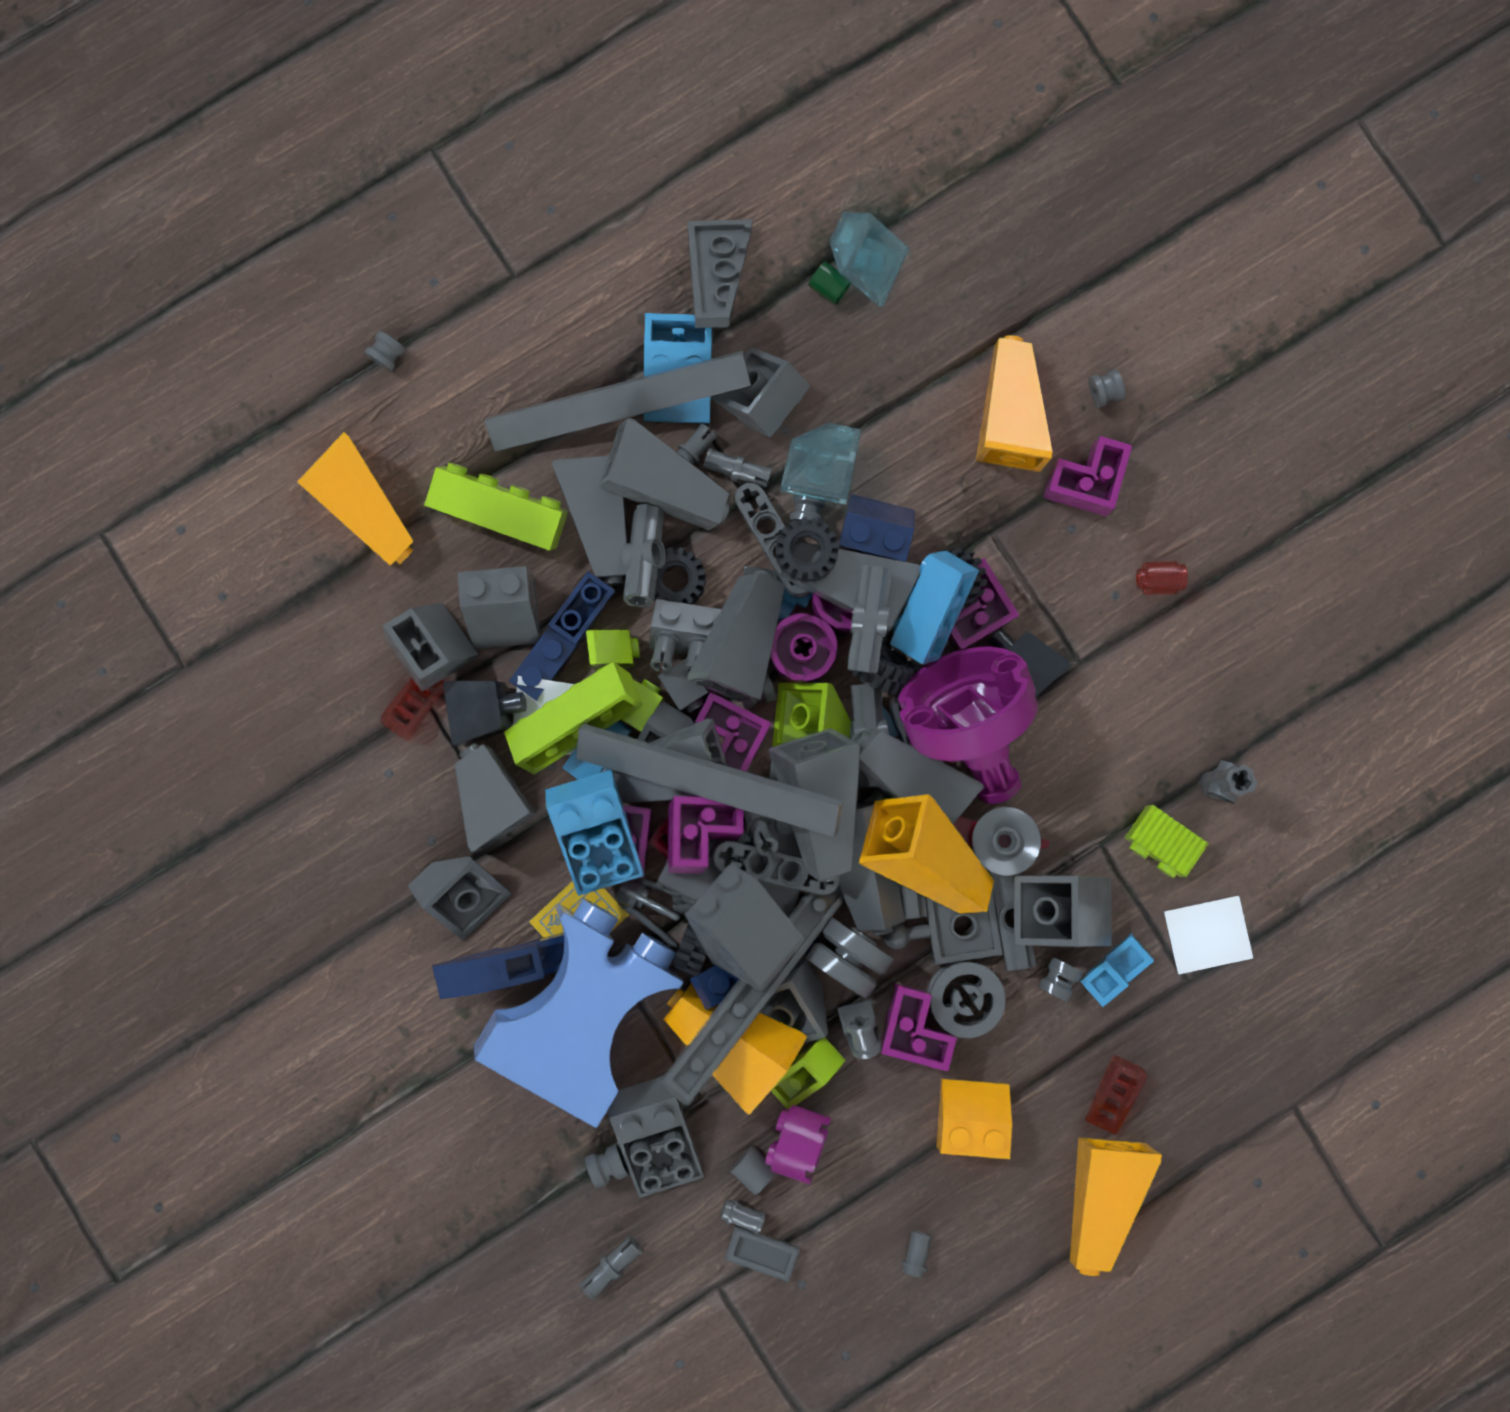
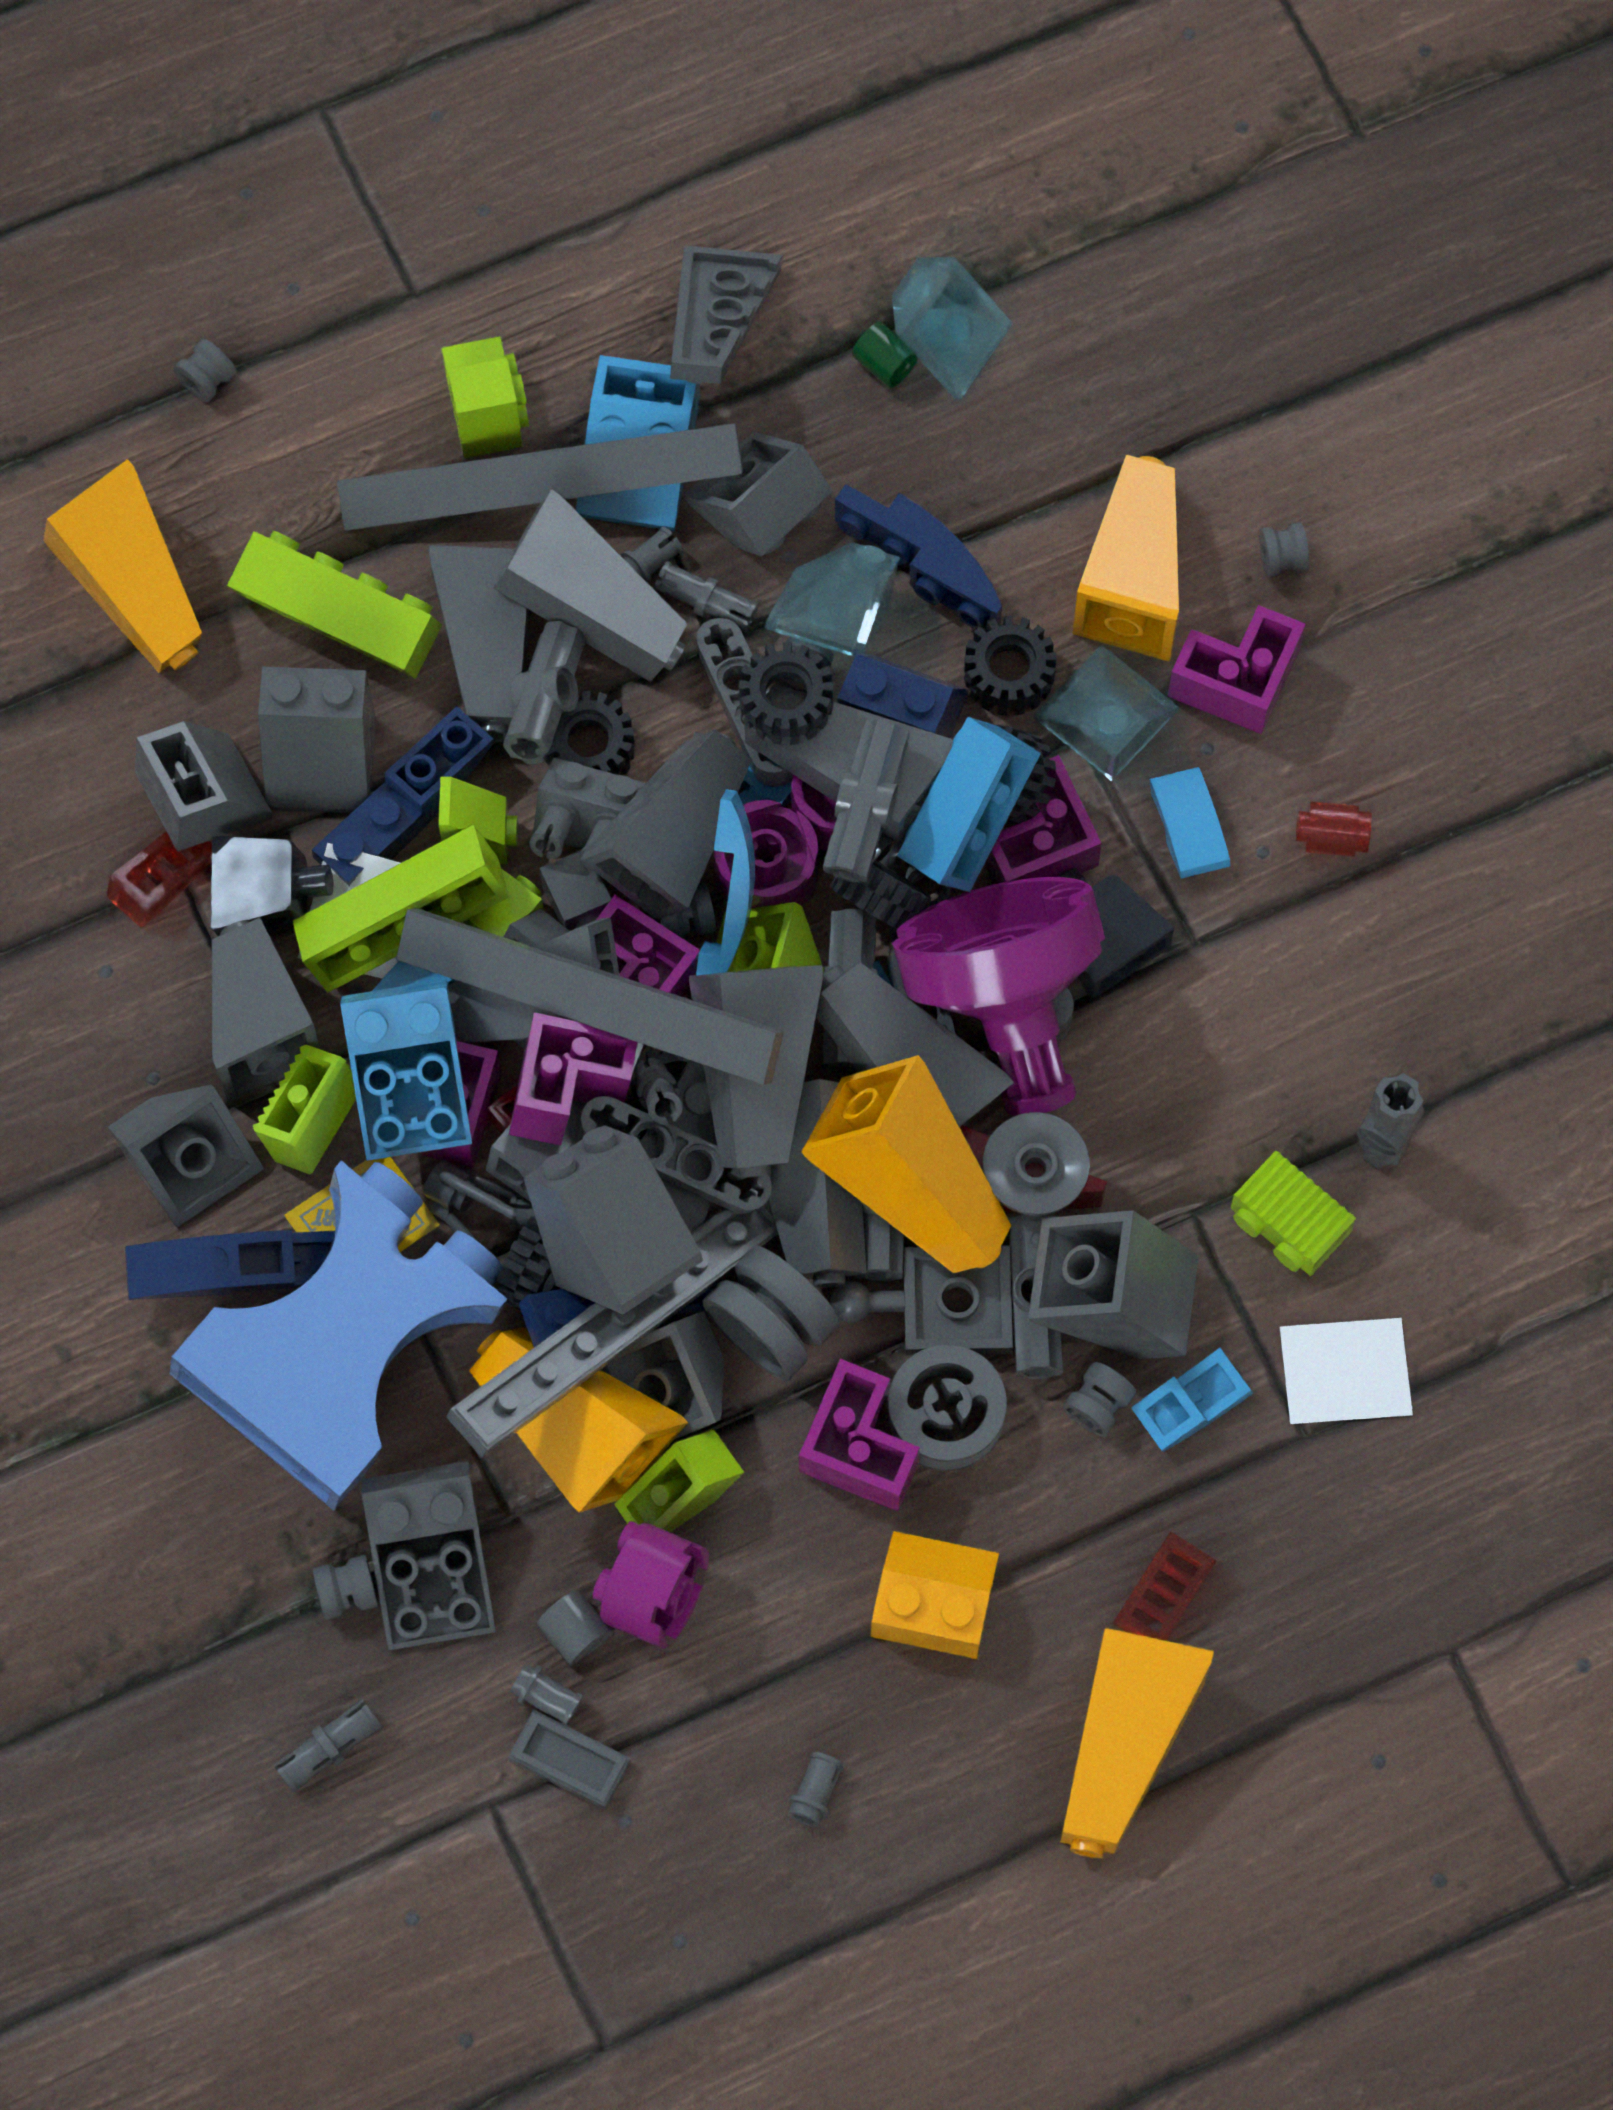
camera: 15 degrees right, 15 degrees down
(532, 858) = (307, 1109): none -> lime brick
(572, 349) = (485, 396): none -> lime brick
(786, 656) = (734, 837): none -> dark azure slope
(860, 1029) = (773, 1424): dark grey piece -> none
(887, 426) = (939, 562): none -> dark blue slope
(945, 472) = (1015, 638): none -> black tyre
(1005, 513) = (1106, 712): none -> clear light blue slope
(1068, 584) = (1190, 822): none -> dark azure slope

